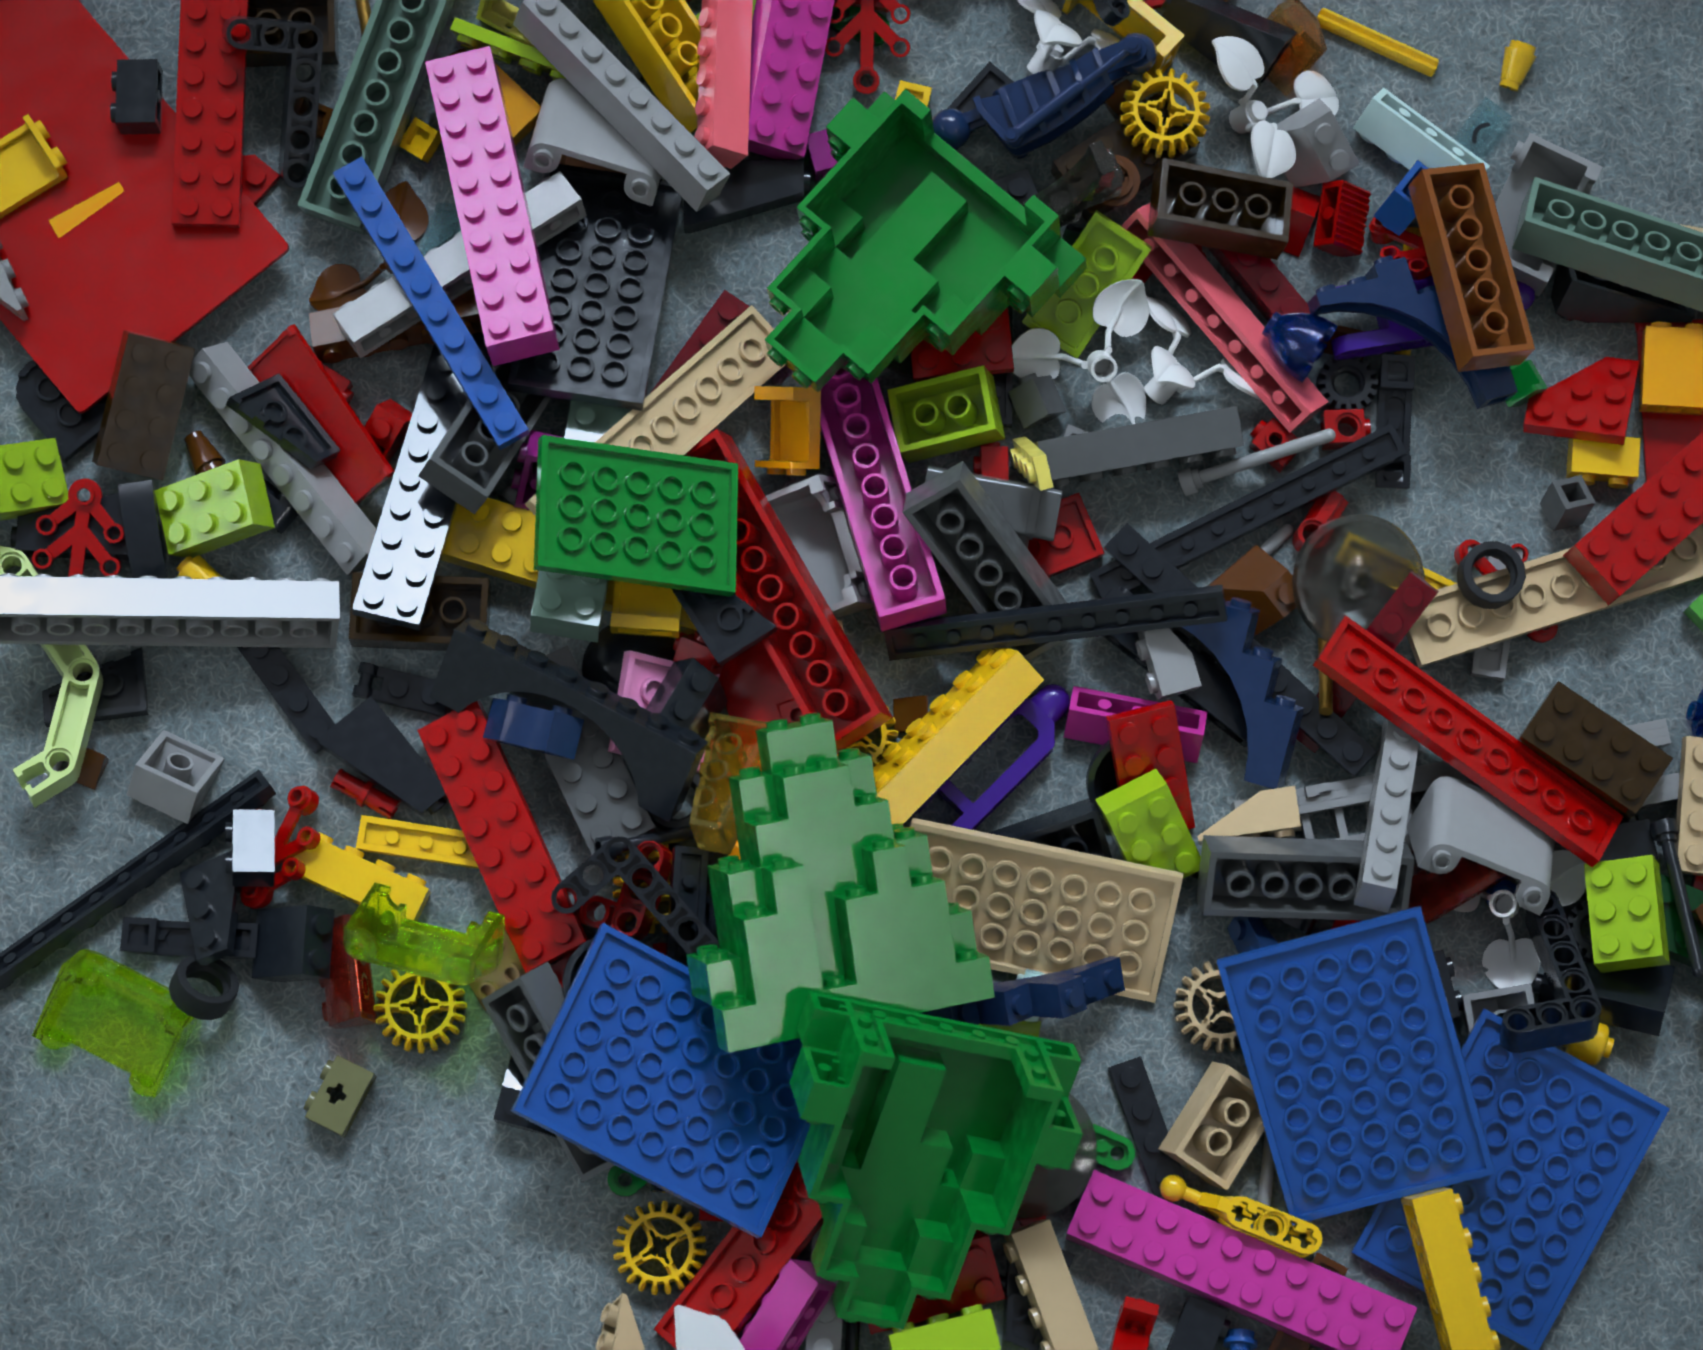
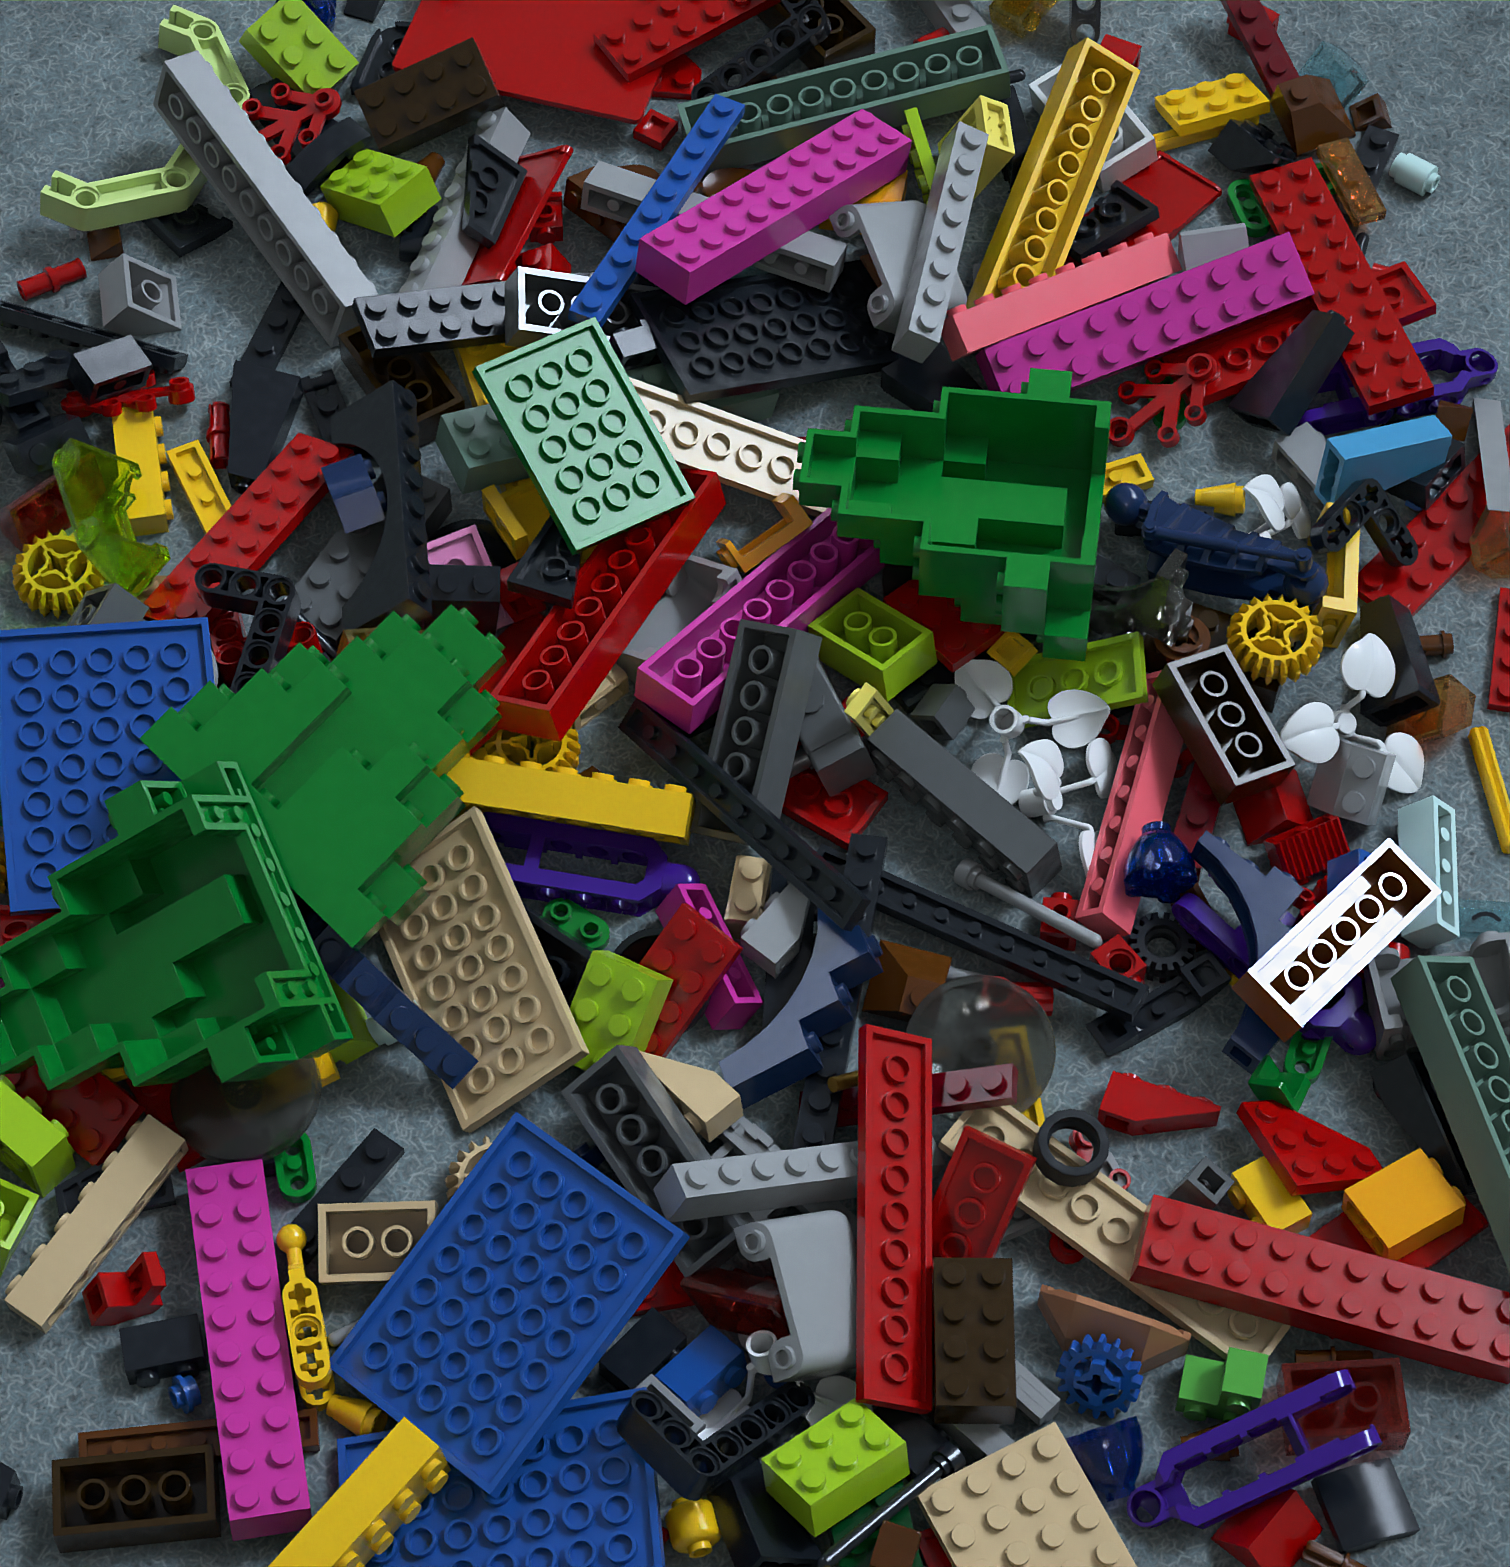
camera: 60 degrees right, 20 degrees down
(97, 836) = (51, 279): none -> red pin
(295, 233) = (655, 130): none -> red plate
(554, 413) = (634, 346): none -> brick
(984, 48) = (1225, 498): none -> yellow cone
(1025, 322) = (1012, 652): none -> yellow plate
(1030, 802) = (578, 922): none -> green plate
(1102, 662) = (747, 892): none -> tan brick
(1341, 1227) = (357, 1414): none -> yellow cone
(1468, 496) = (1148, 1108): none -> red slope
(1474, 956) = (704, 1371): none -> blue brick
(1485, 671) = (977, 1196): none -> red plate
(1631, 648) = (1075, 1316): none -> nougat wedge
(1665, 678) = (1115, 1373): none -> blue gear

